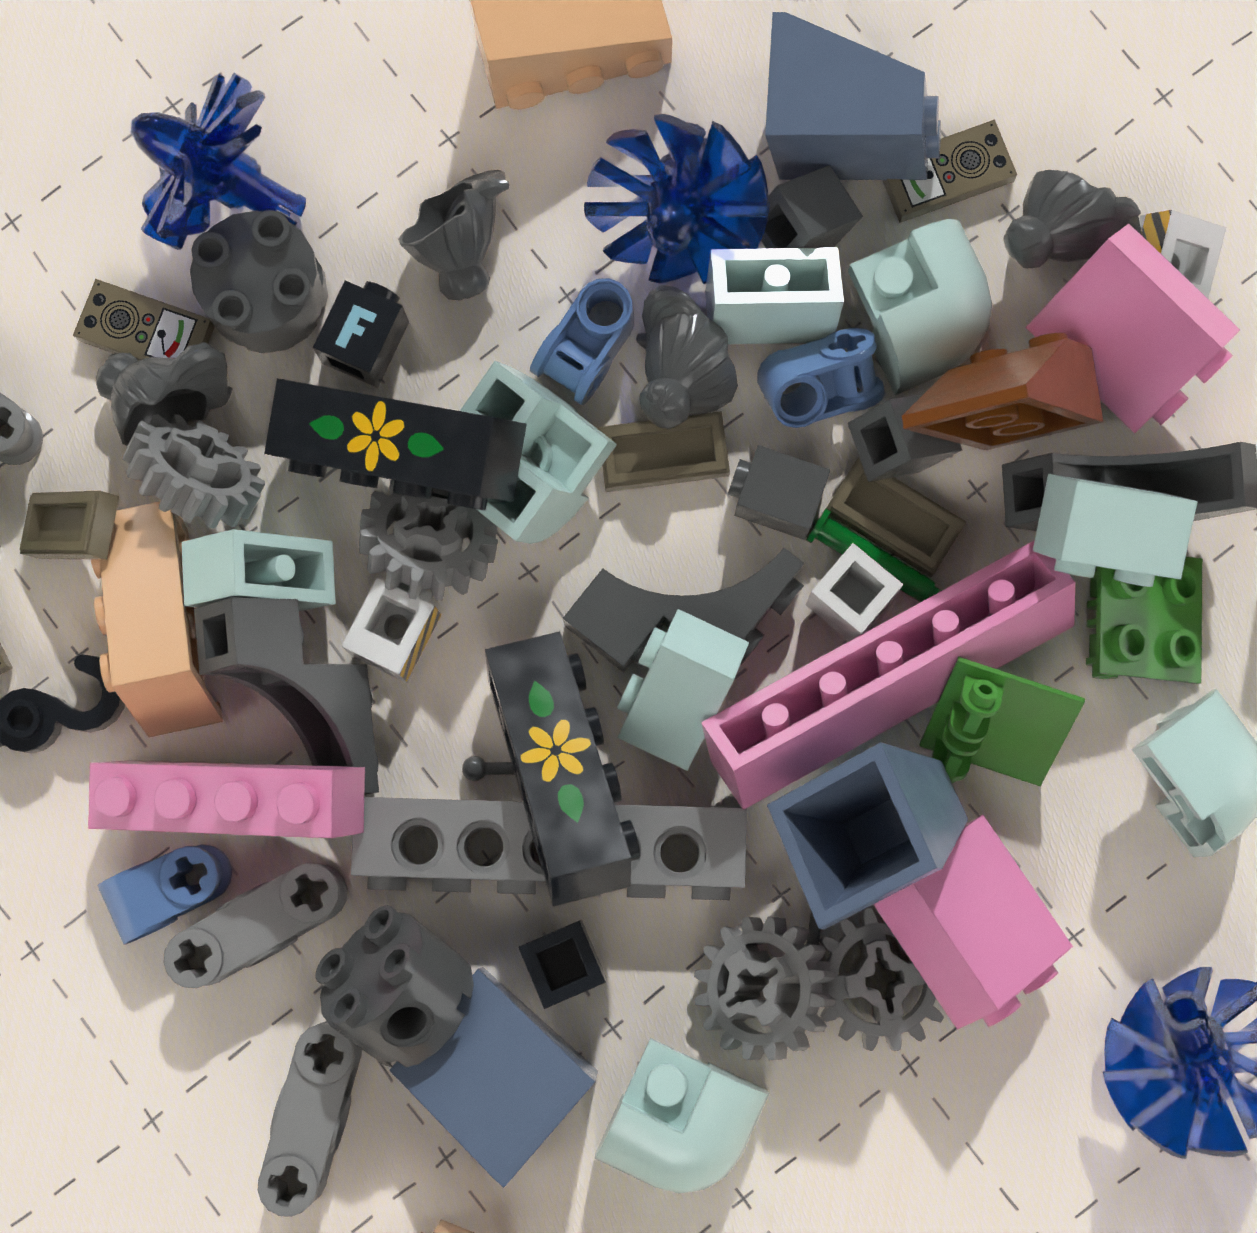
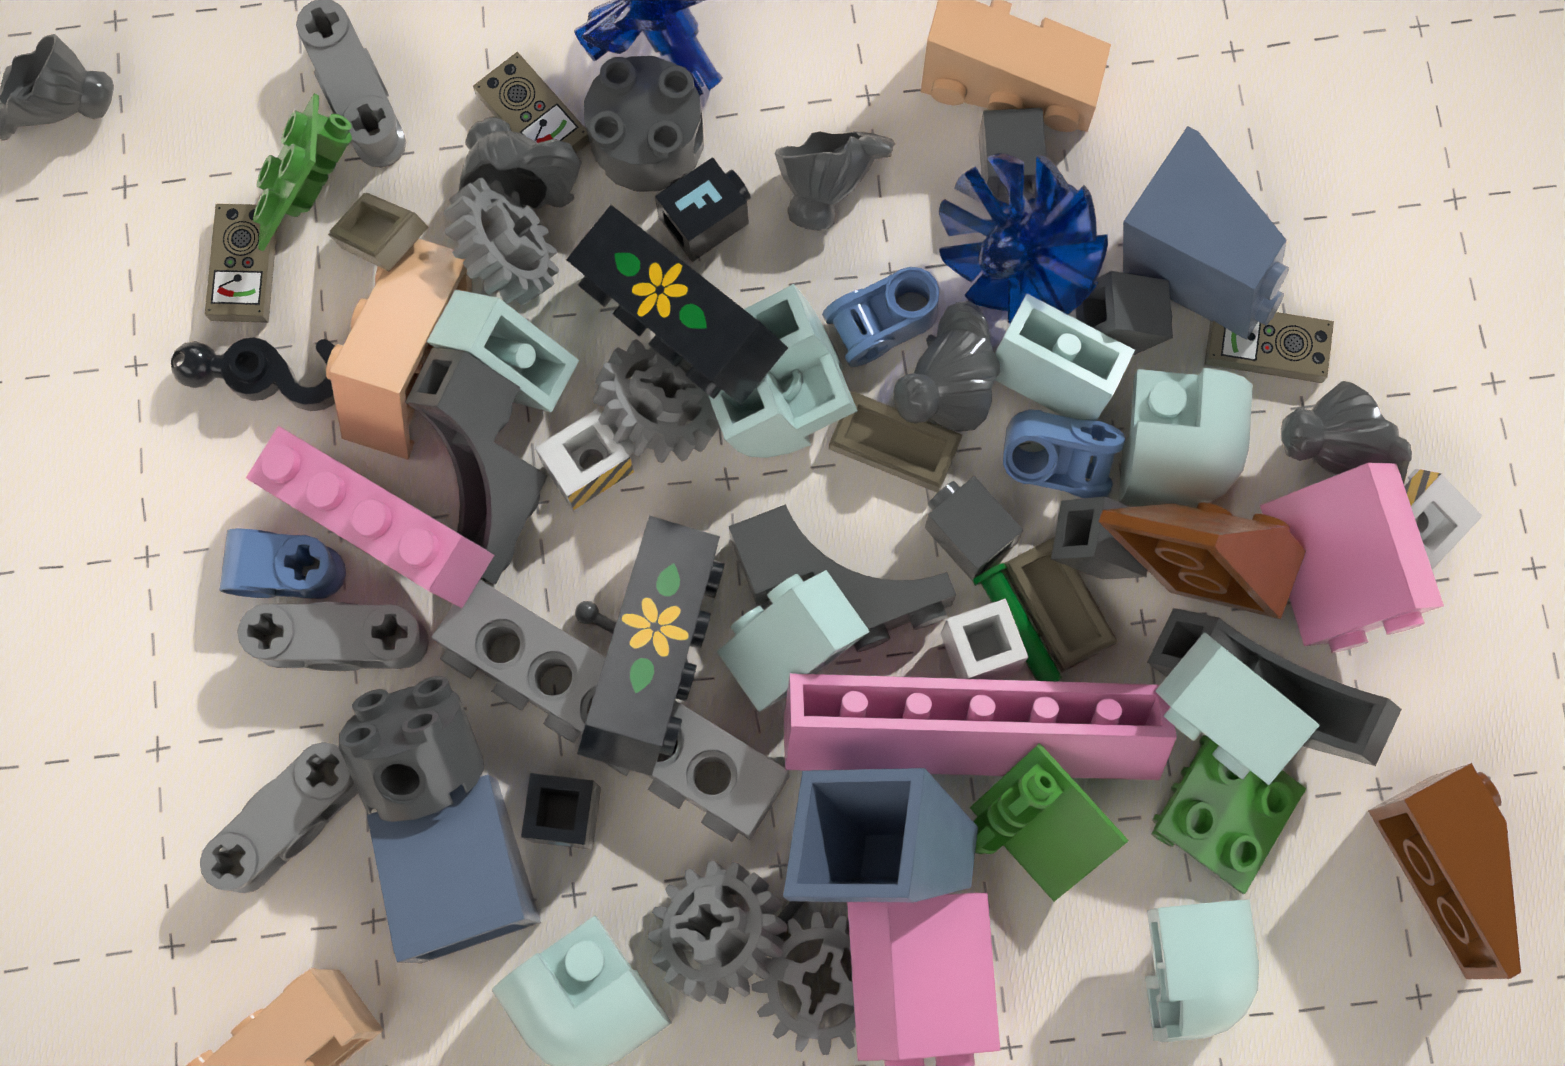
camera: 30 degrees right, 5 degrees down
(610, 107) = (1016, 134): none -> dark grey brick

